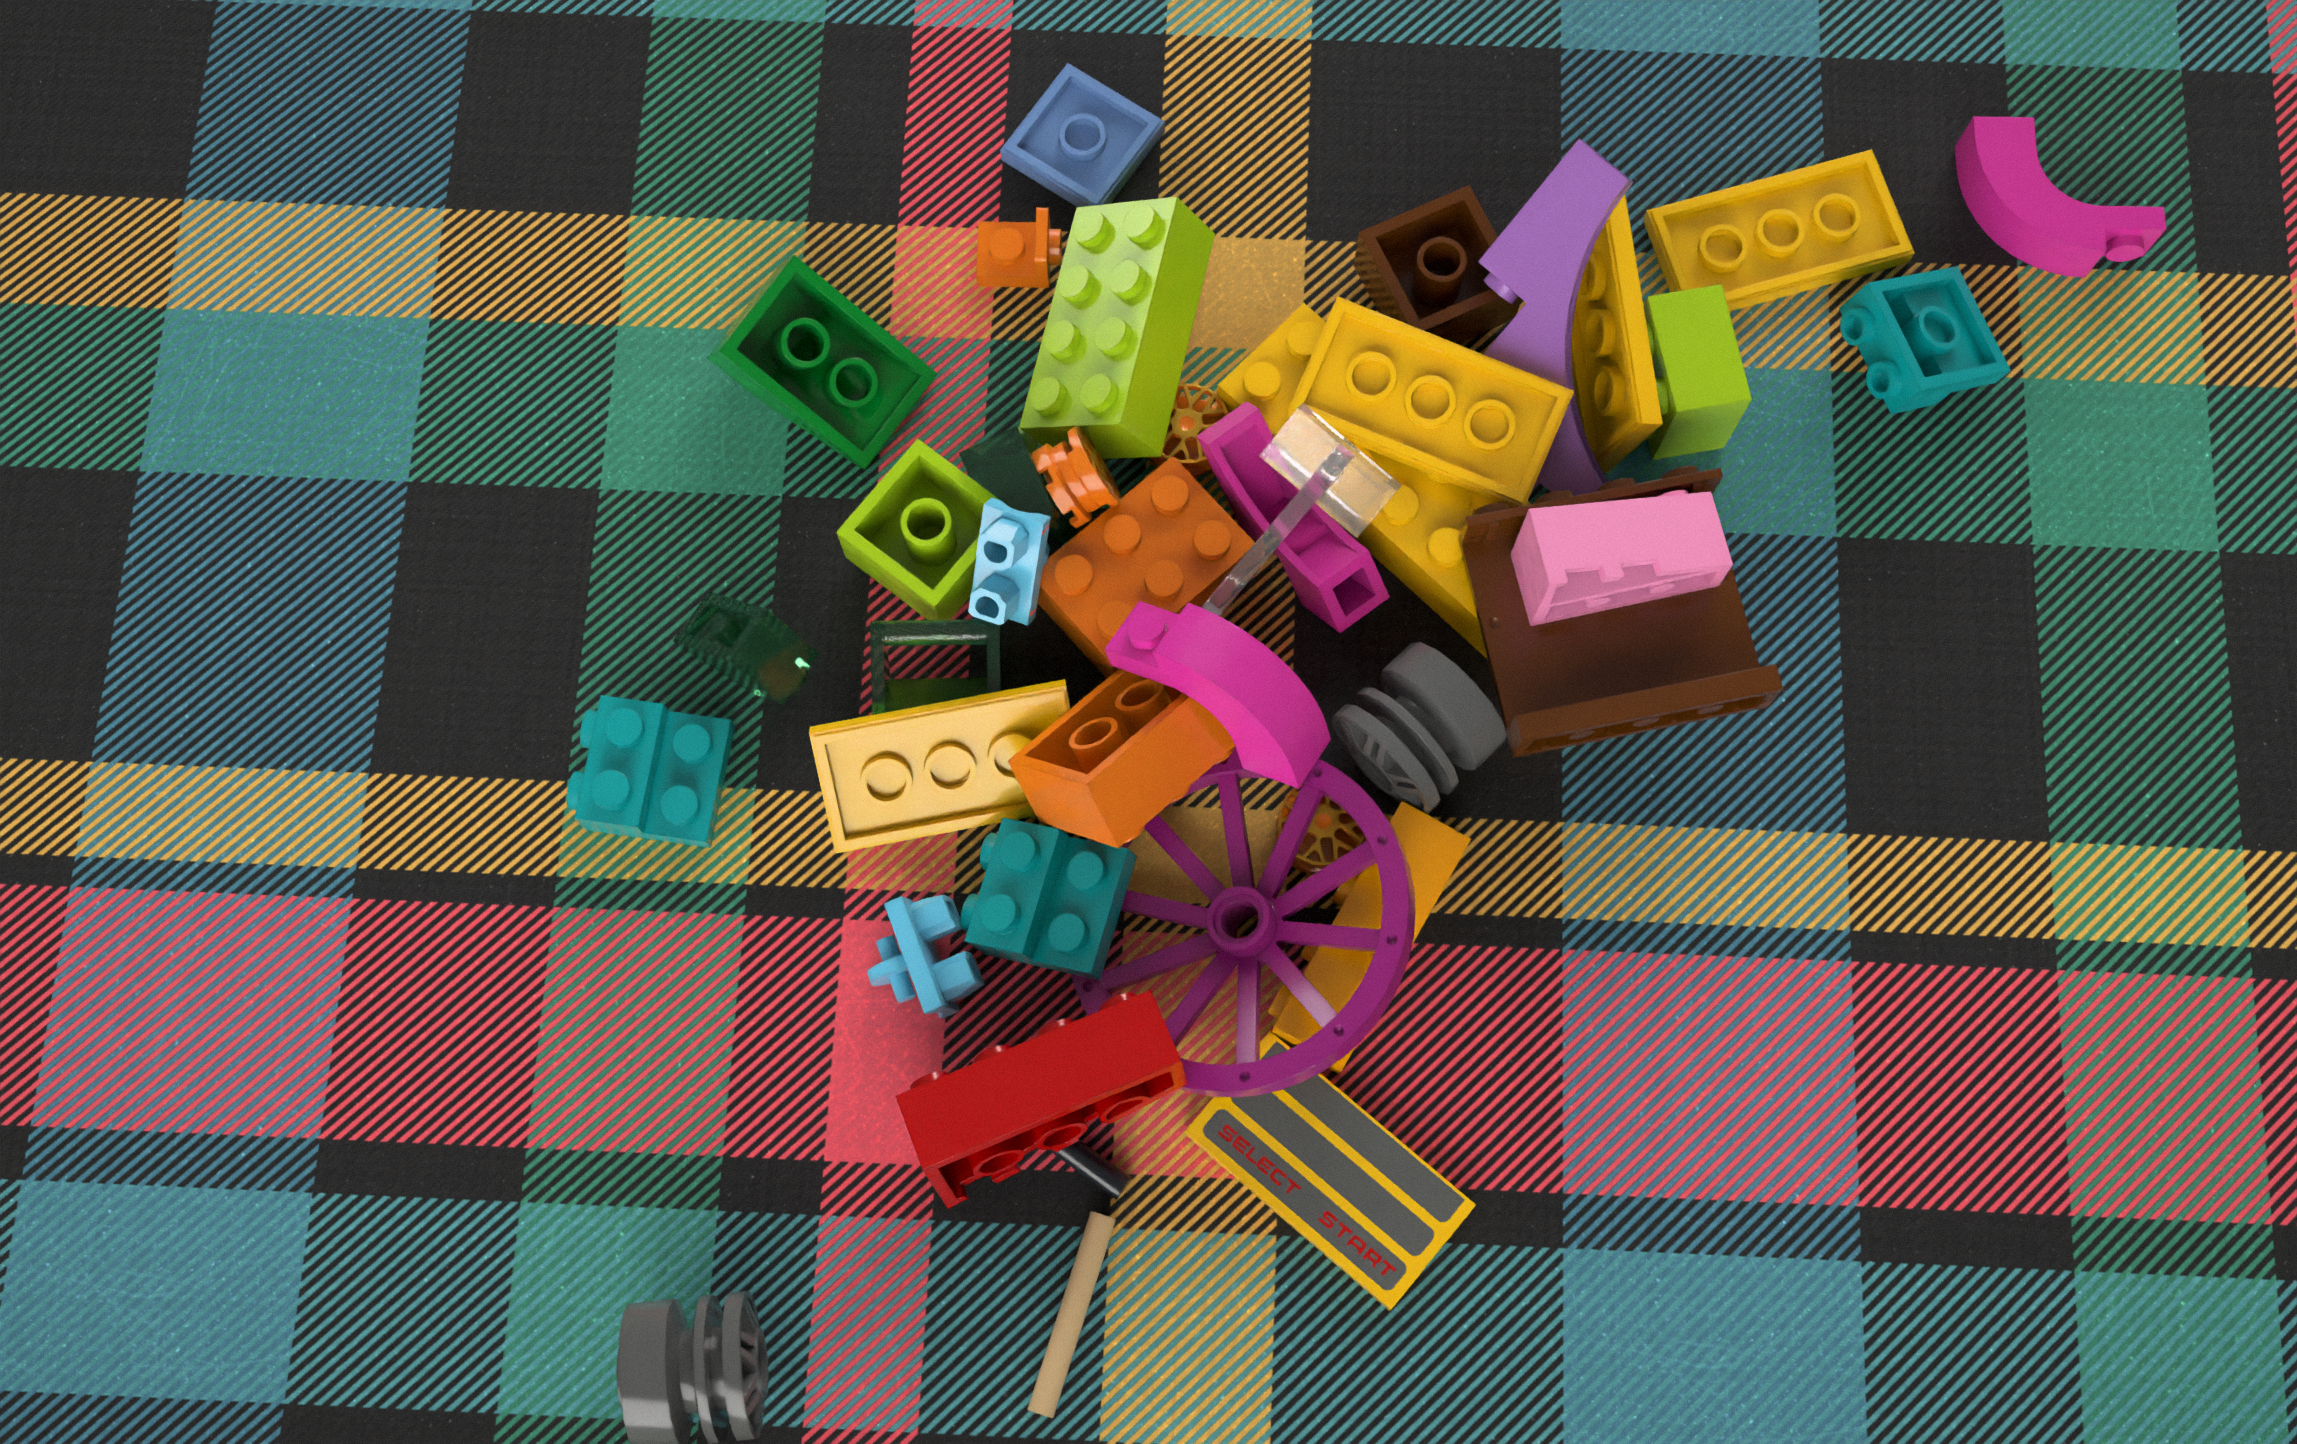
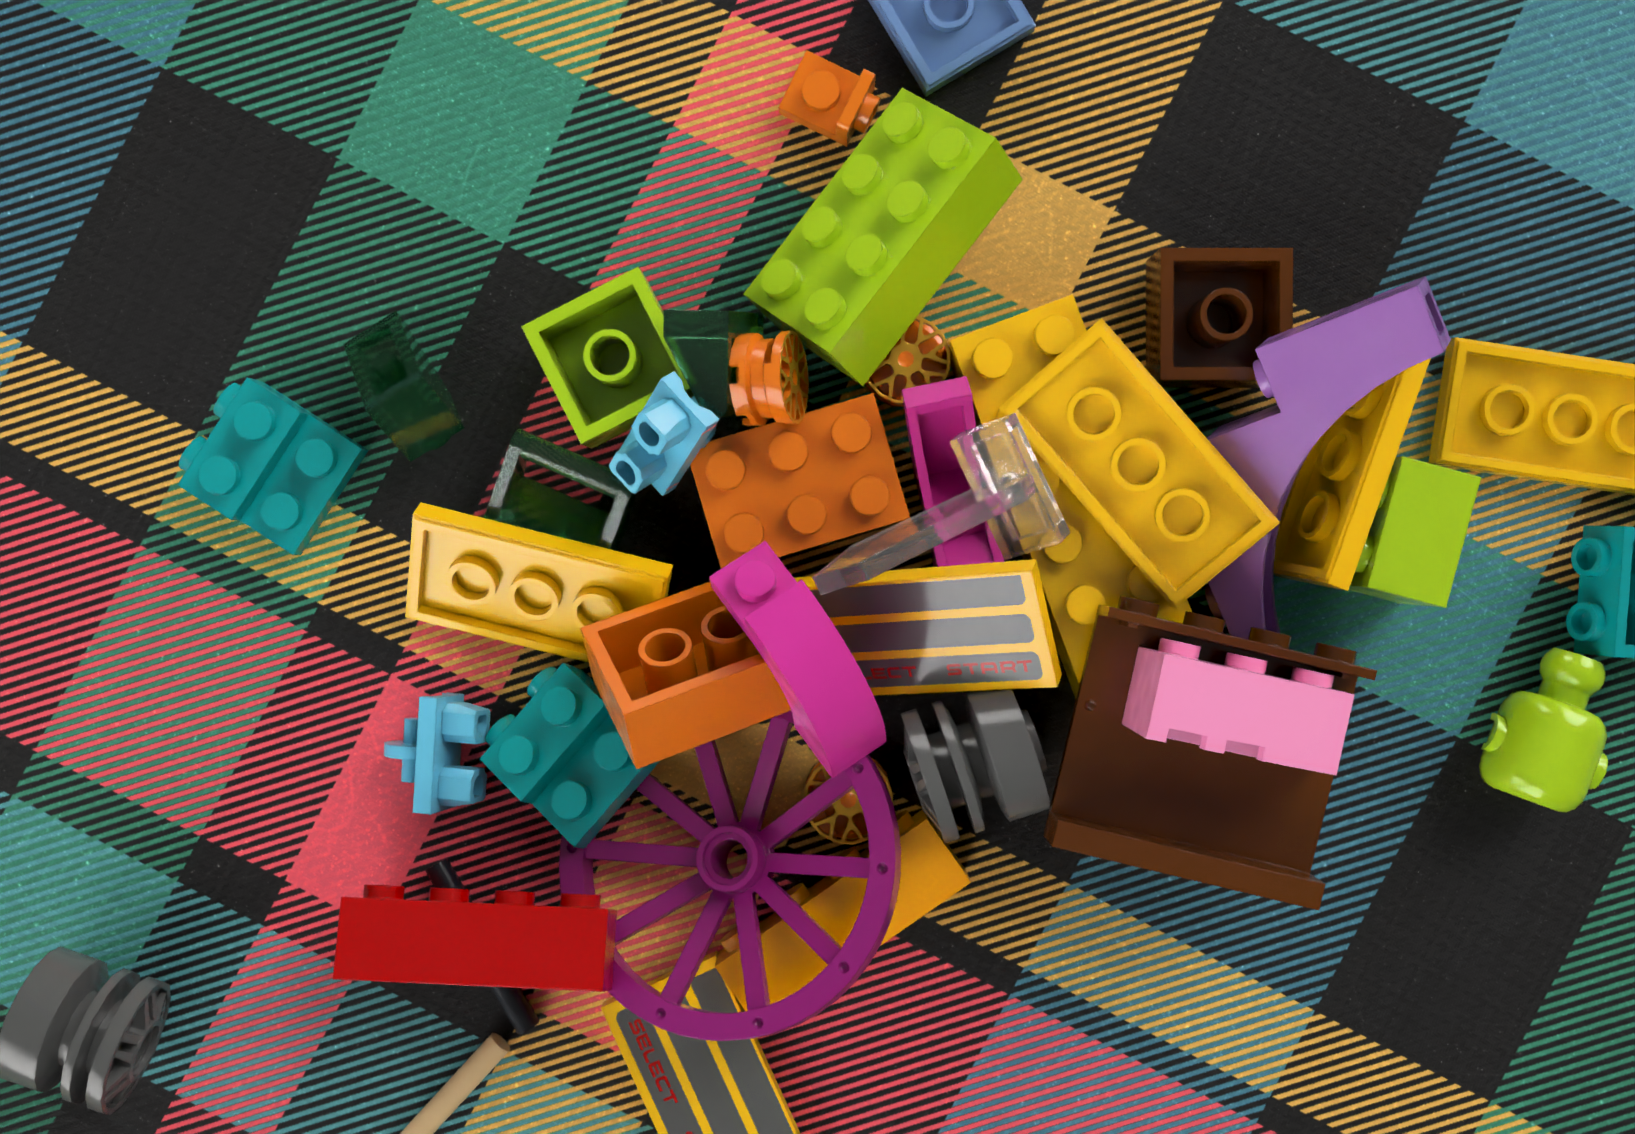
camera: 30 degrees right, 15 degrees up
(822, 363) = (590, 132): green slope -> none
(1347, 608) = (948, 628): none -> tile
(1909, 489) = (1546, 741): none -> lime piece

